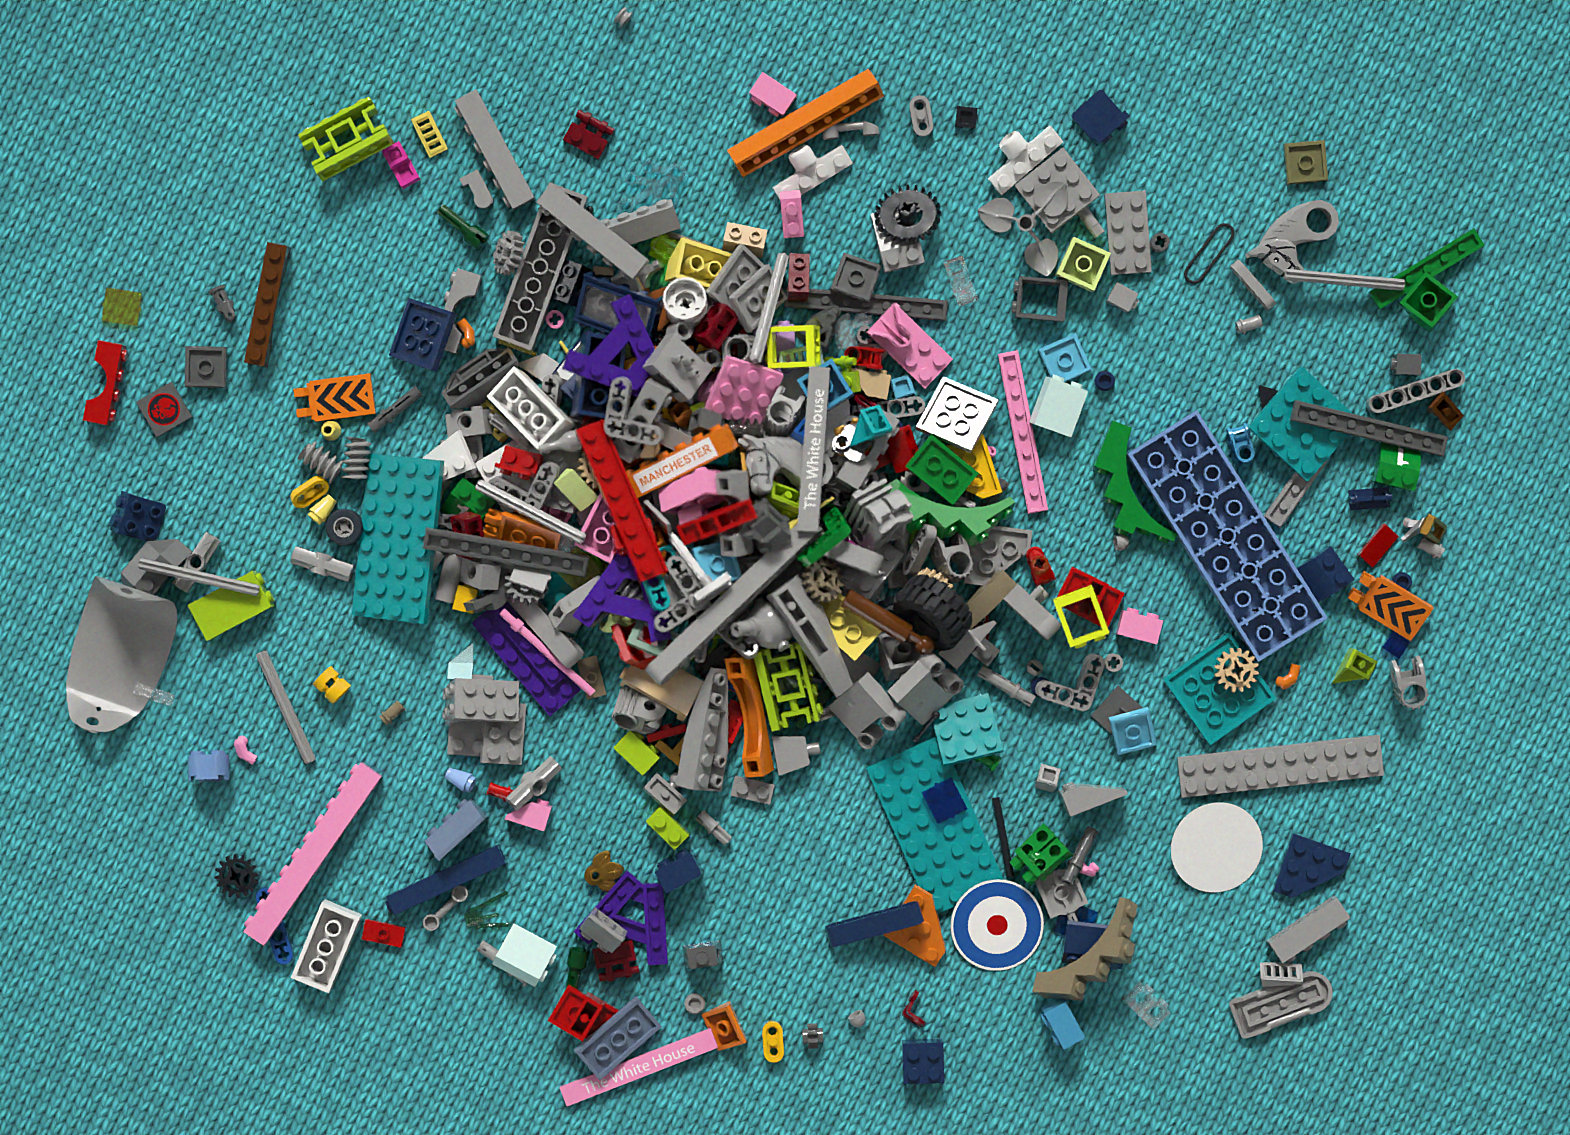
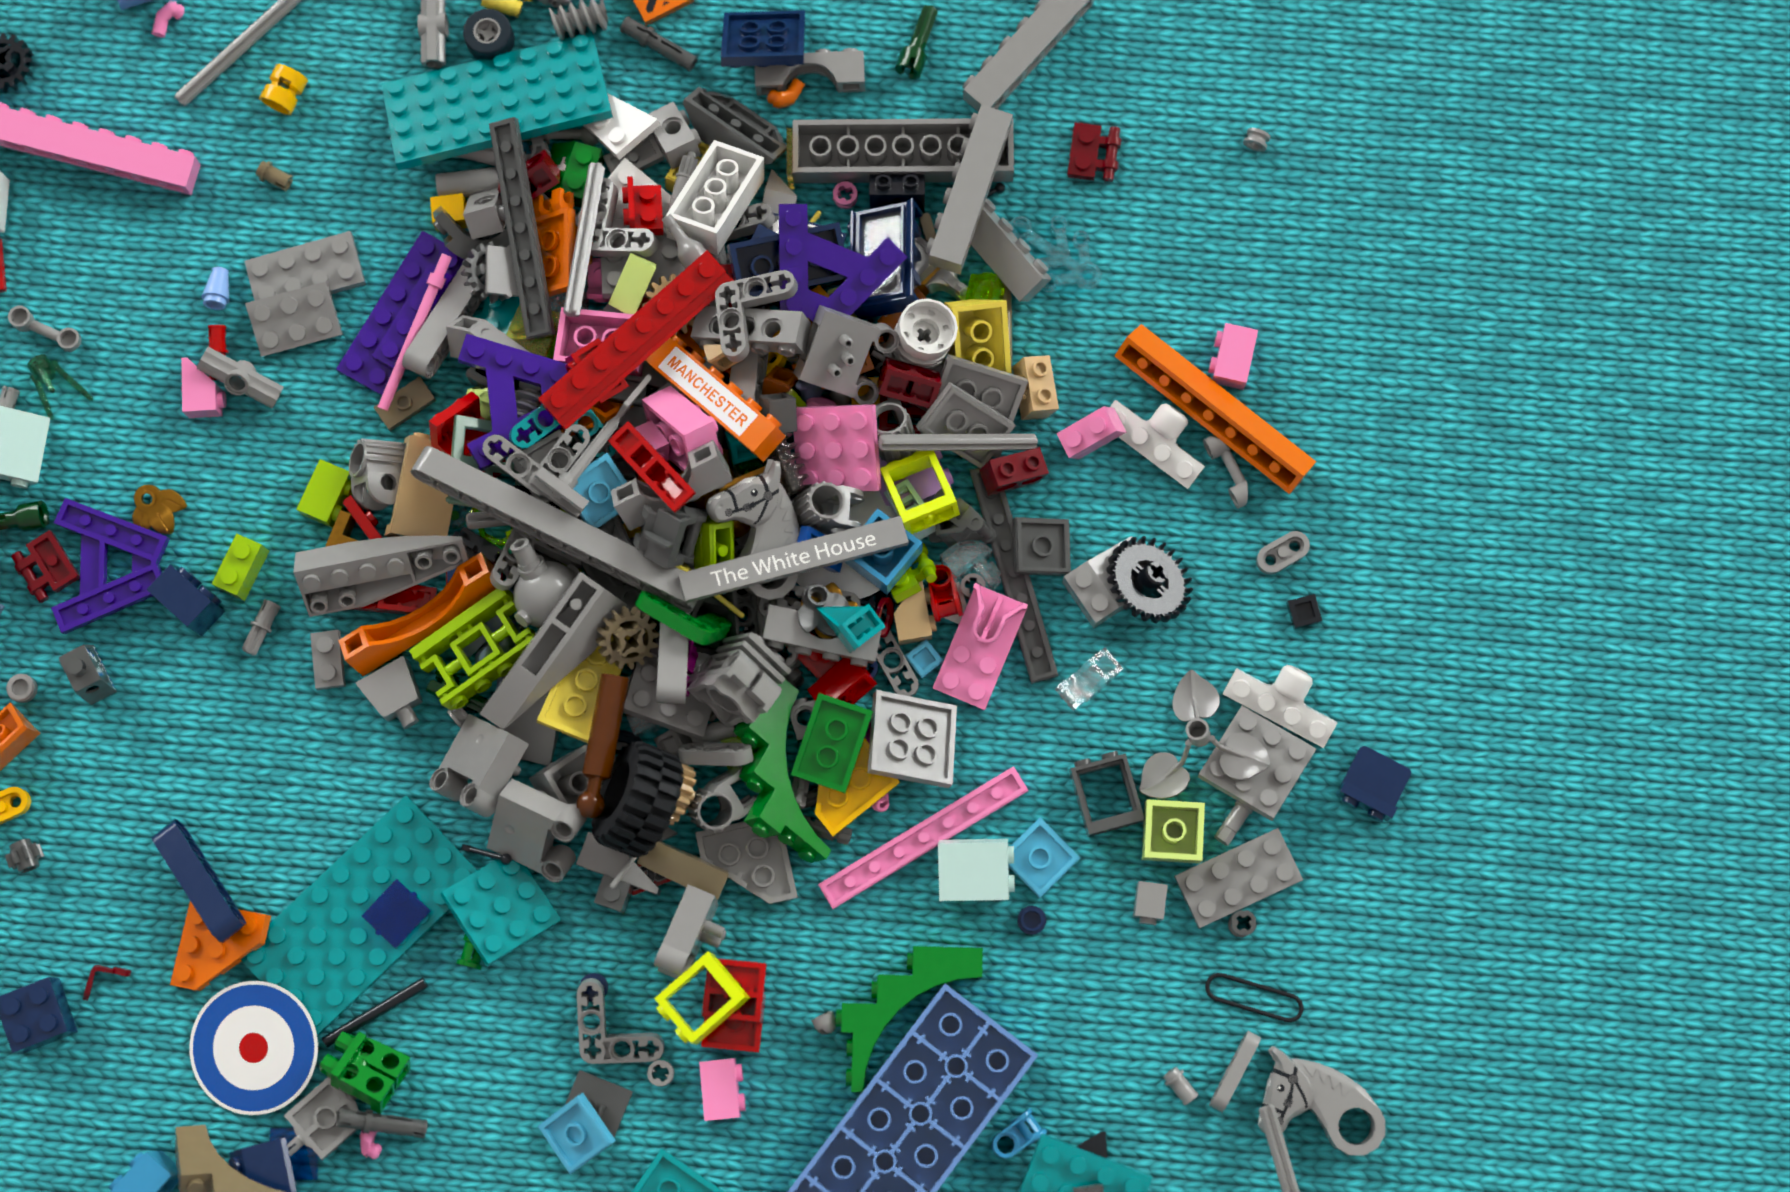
camera: 75 degrees right, 10 degrees down
(445, 879) = (82, 316): dark blue brick -> none
(455, 828) = (149, 303): sand blue slope -> none
(462, 665) = (364, 240): clear light blue sticker -> none
(481, 701) = (324, 275): light grey bracket -> none
(482, 195) = (973, 44): light grey leg -> none
(508, 252) = (906, 103): light grey gear -> none
(603, 931) = (76, 529): light grey slope -> none
(665, 792) = (282, 548): light grey plate -> none
(857, 1018) = (67, 907): light grey hinge -> none
(1005, 685) = (578, 943): light grey pin -> none
(1038, 664) = (623, 970): light grey hinge -> none
(1039, 566) = (751, 926): red piece -> none
(1047, 778) = (475, 1042): light grey slope -> none
(1083, 797) = (466, 1102): light grey slope -> none
(1305, 162) = (1426, 1081): olive tile -> none

